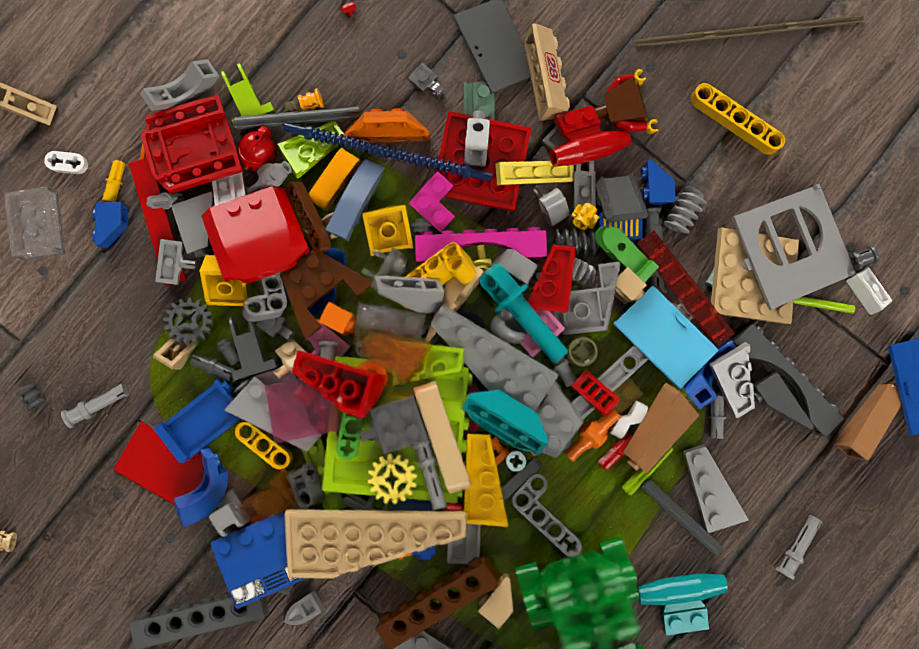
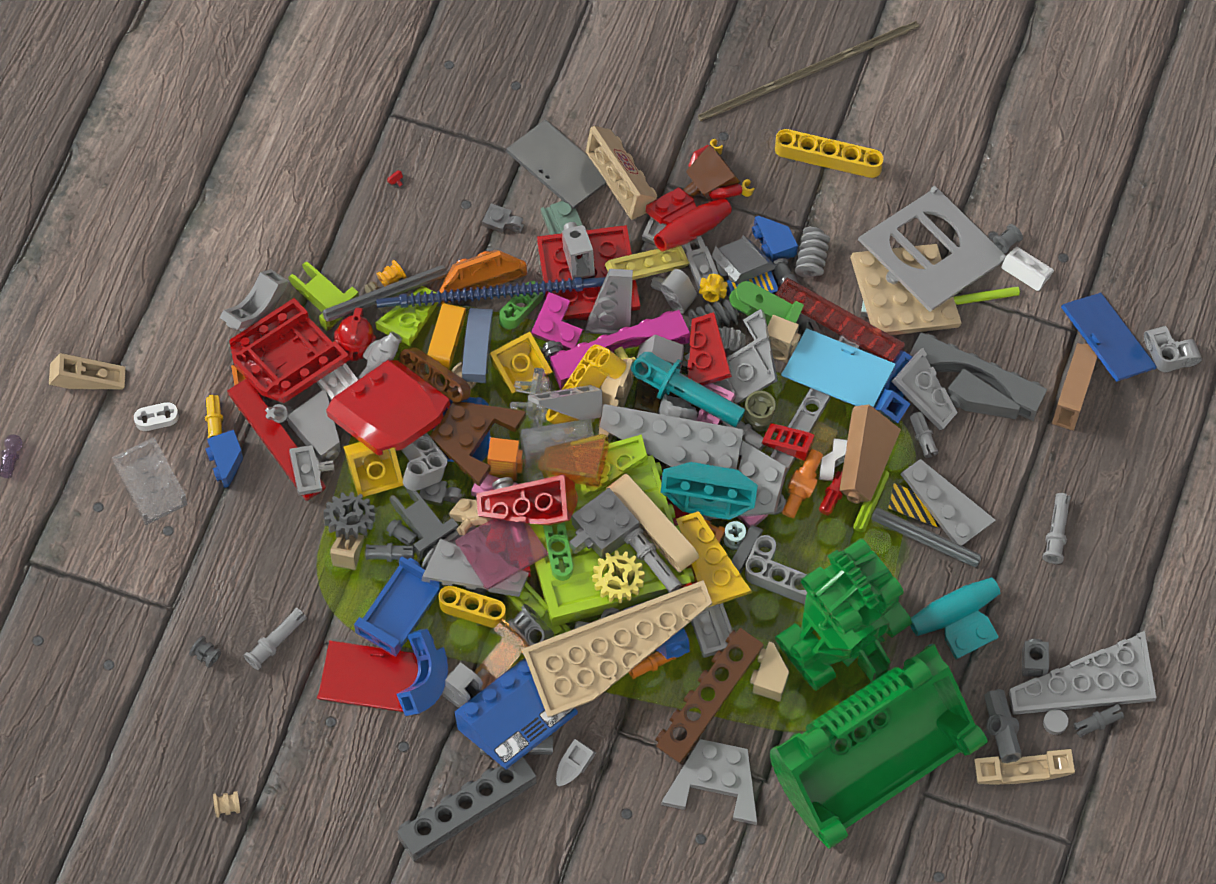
camera: 20 degrees left, 20 degrees down
(407, 178) = (520, 313): none -> bright green beam
(483, 309) = (646, 397): none -> dark brown plate
(488, 205) = (613, 304): none -> light grey wing
(679, 480) = (907, 502): none -> sticker

